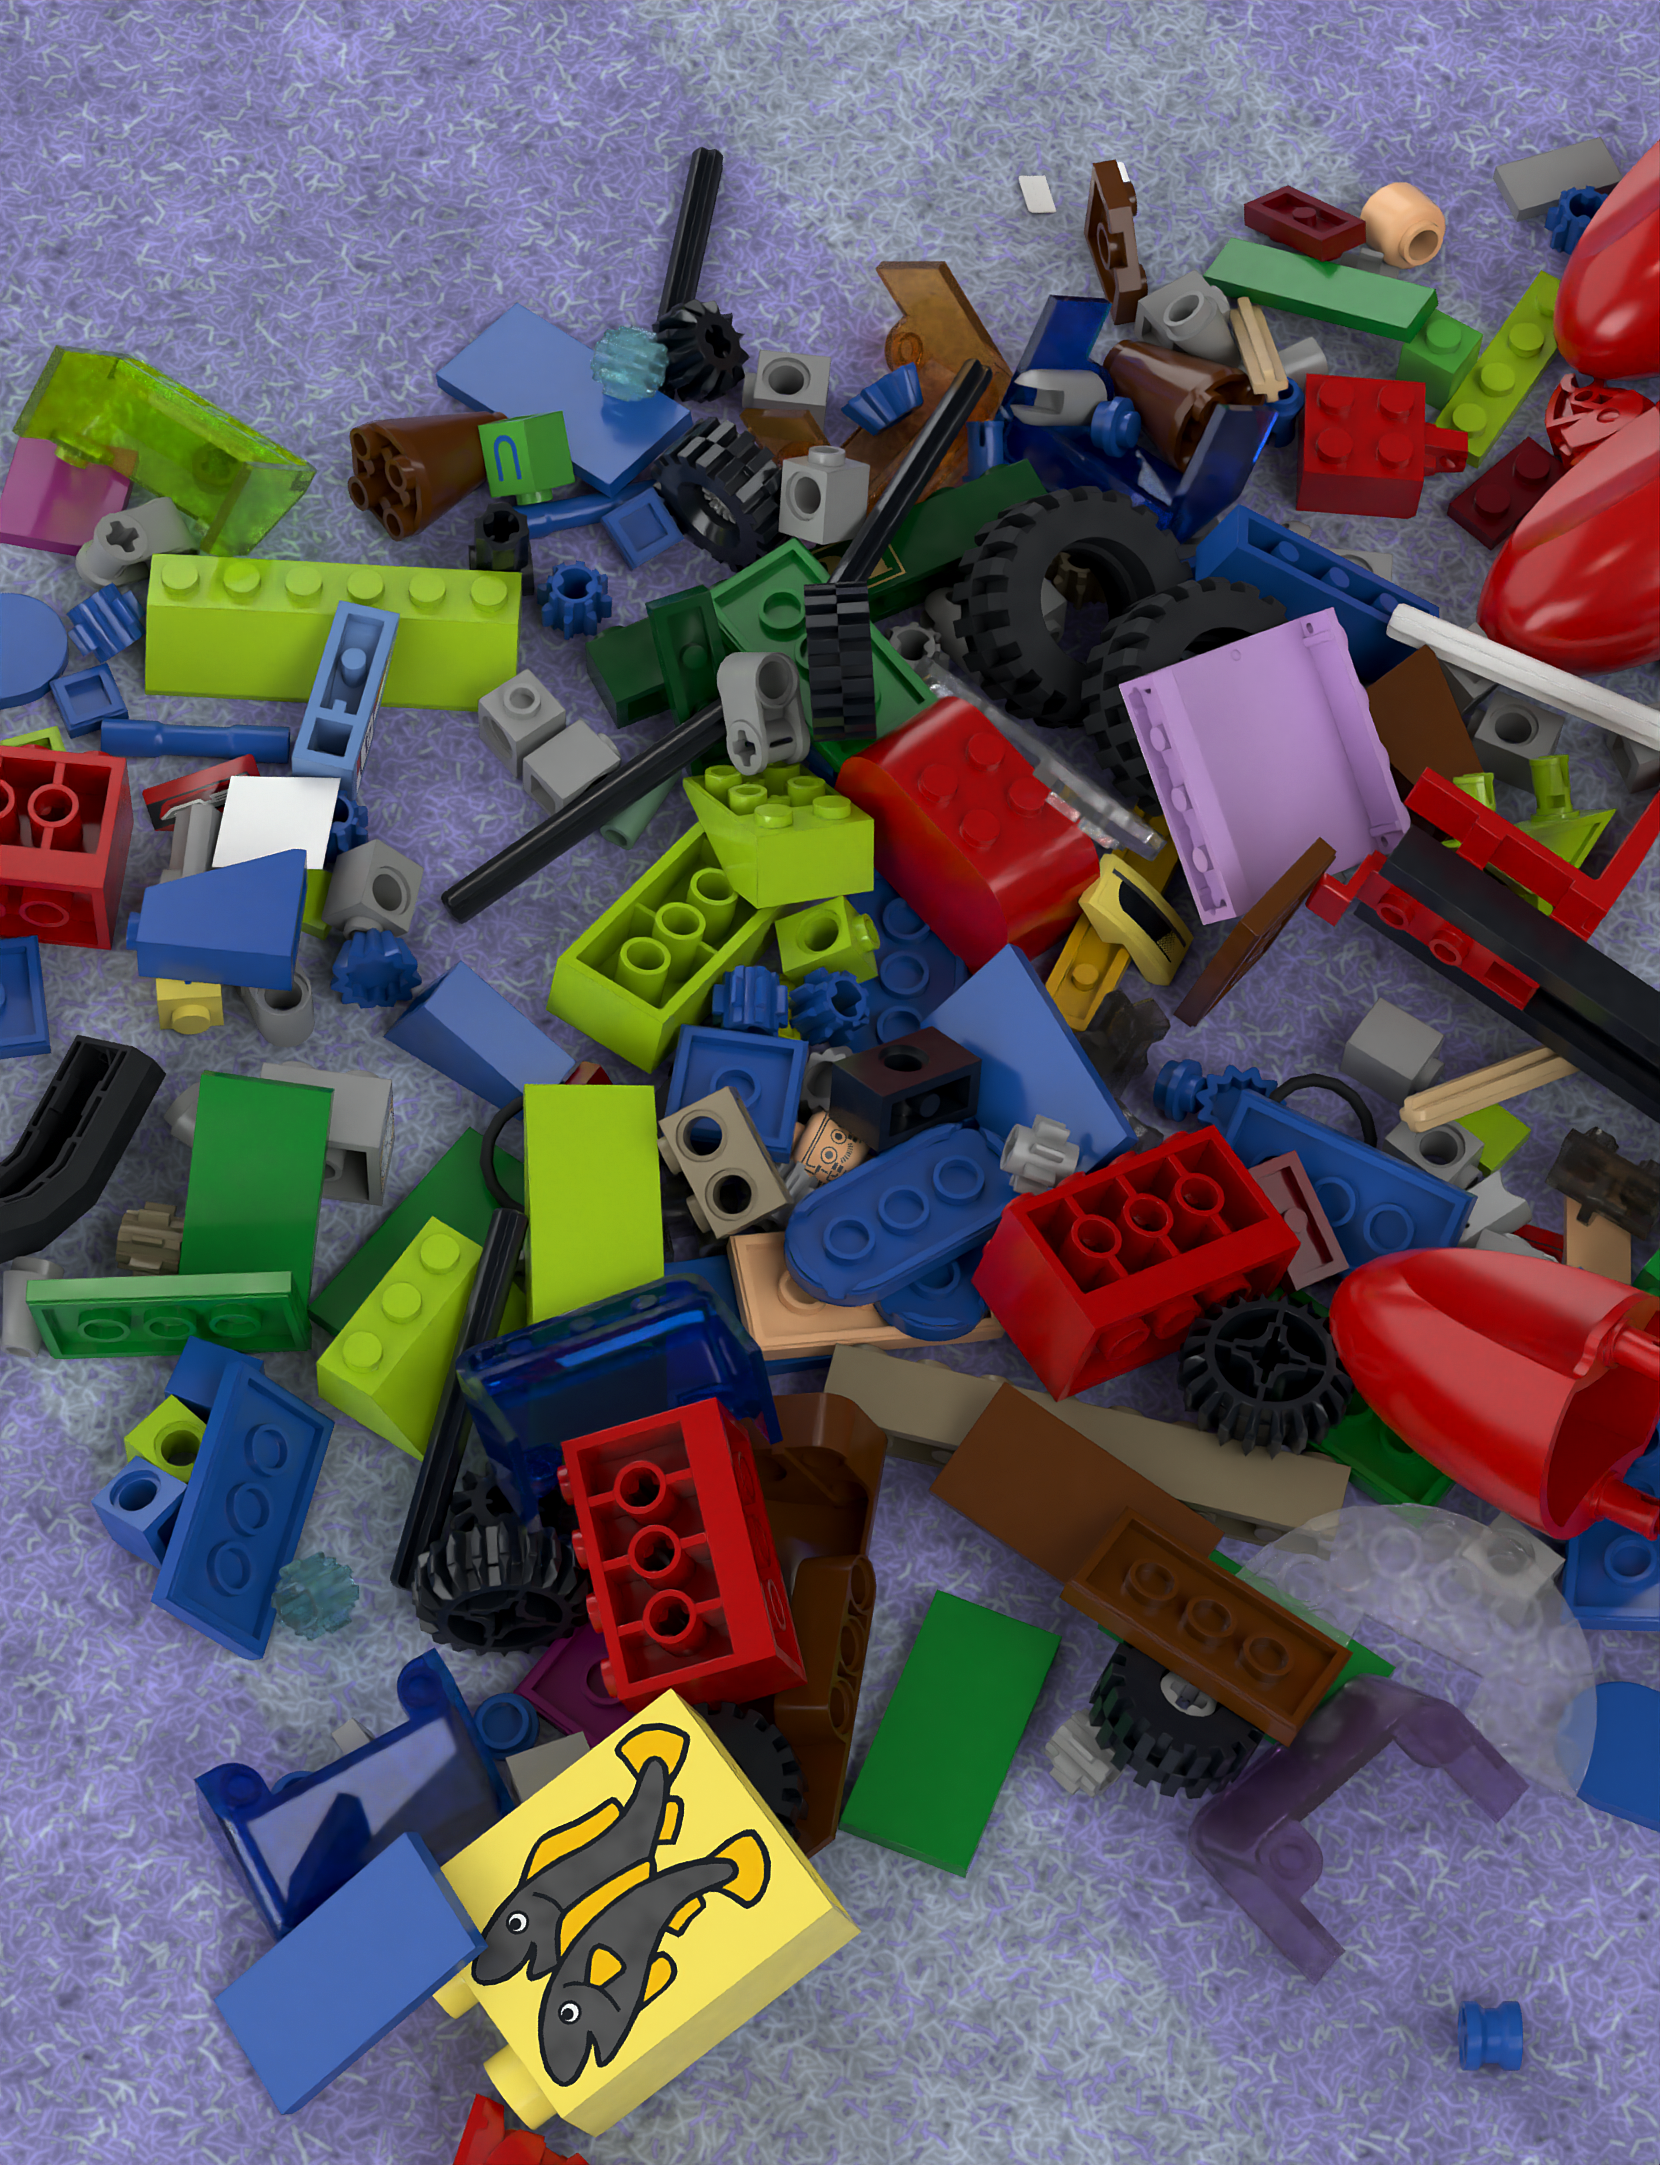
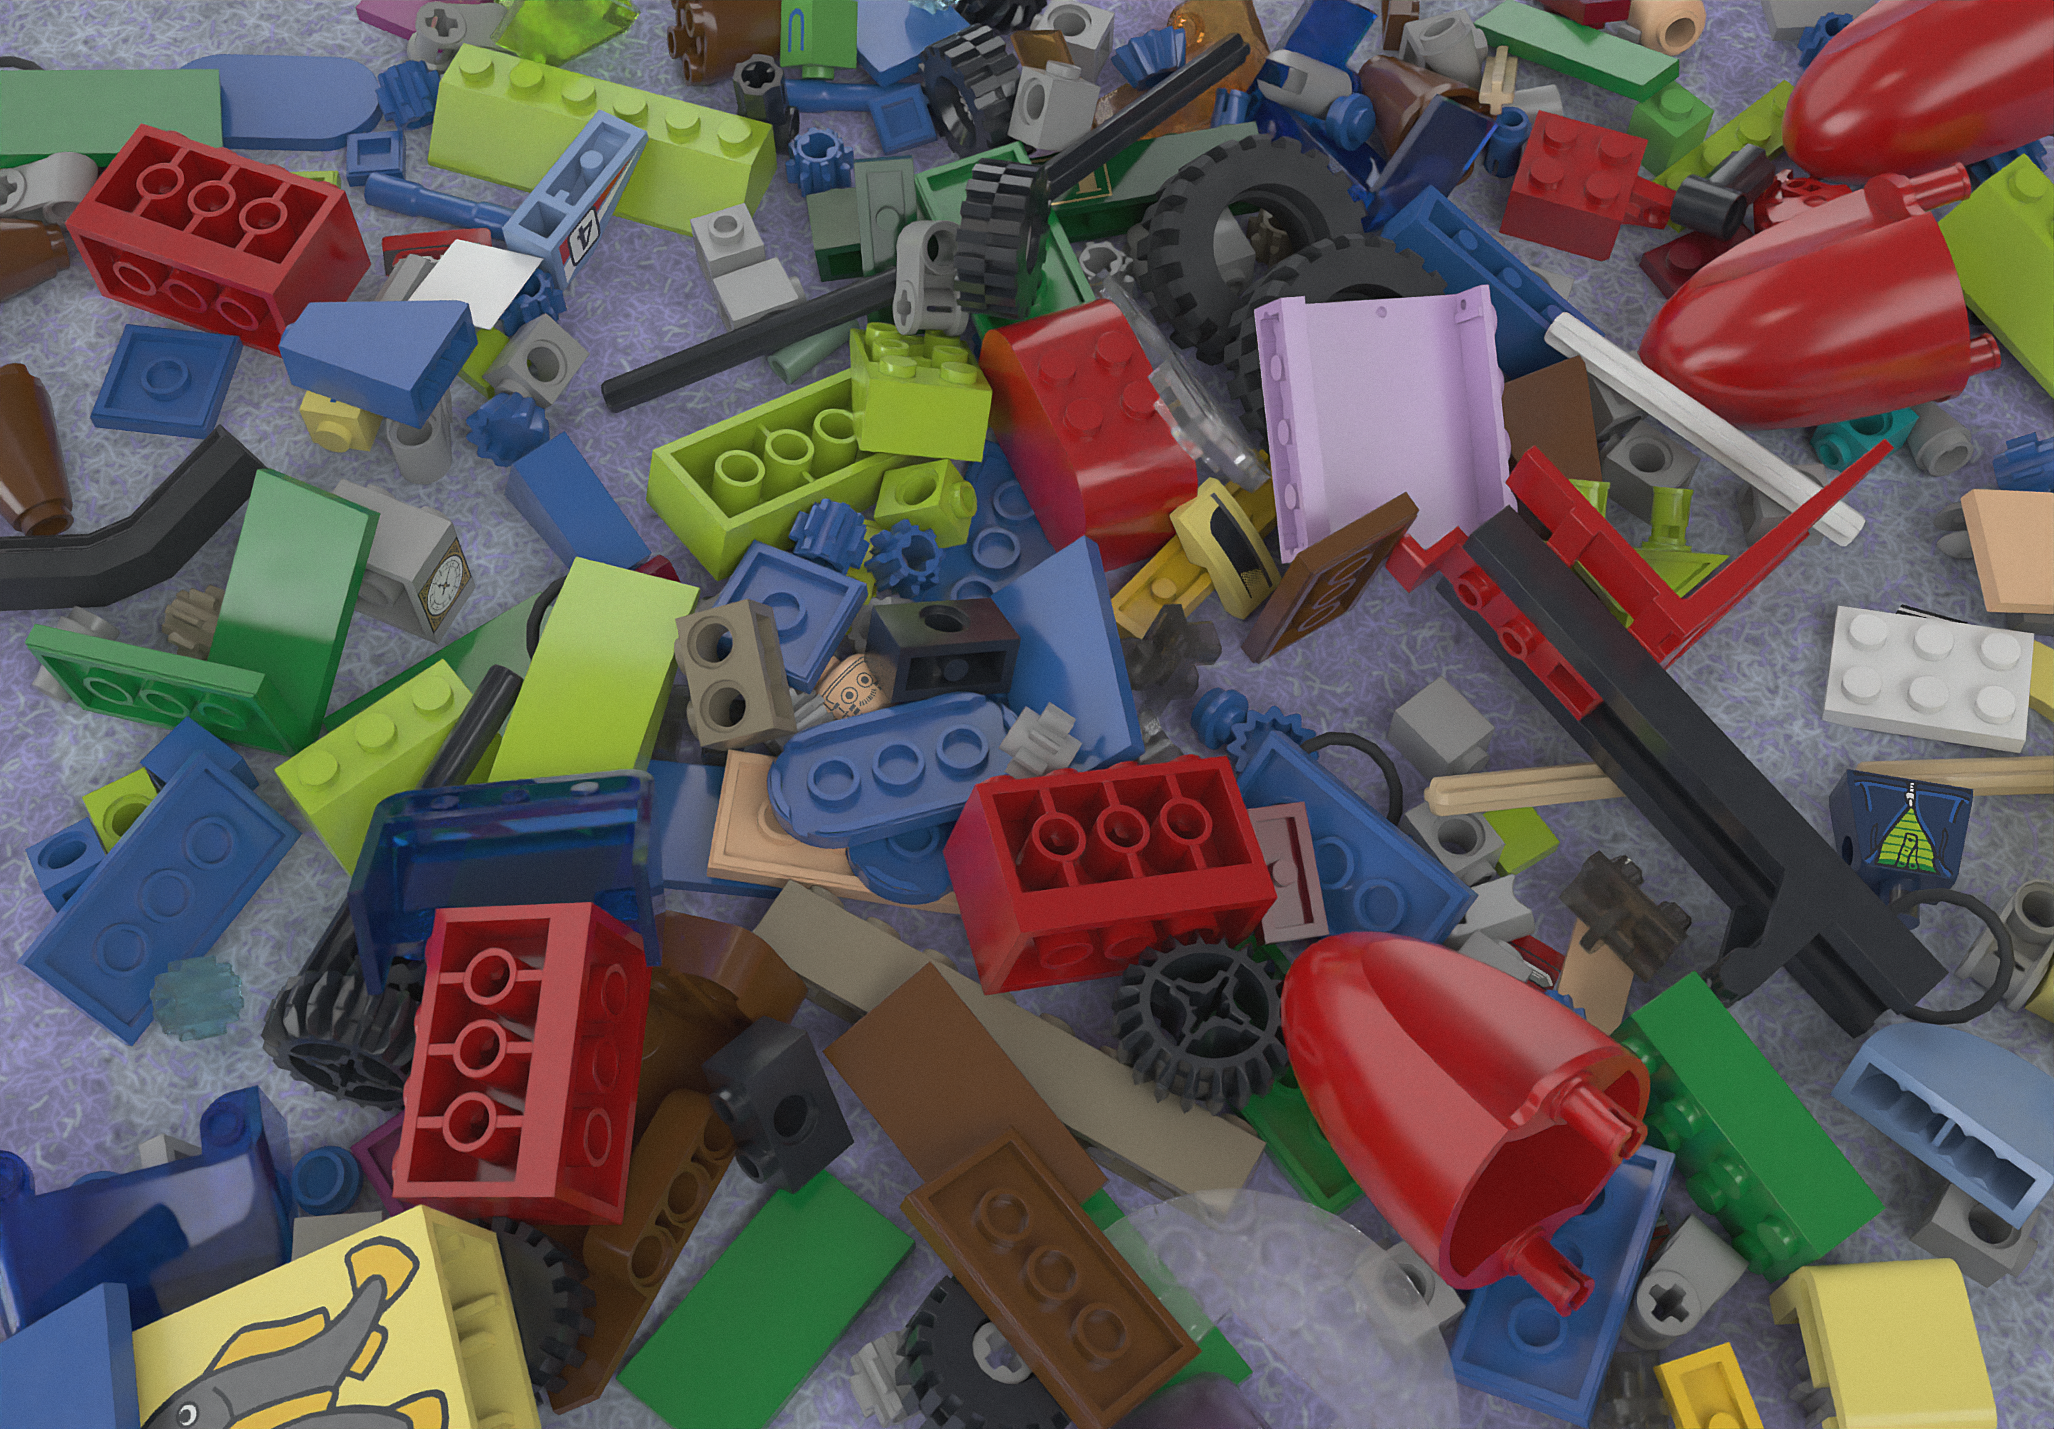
camera: 20 degrees right, 0 degrees up
(907, 1544) = (777, 1104): none -> black brick
(1513, 430) = (1721, 198): none -> black piece

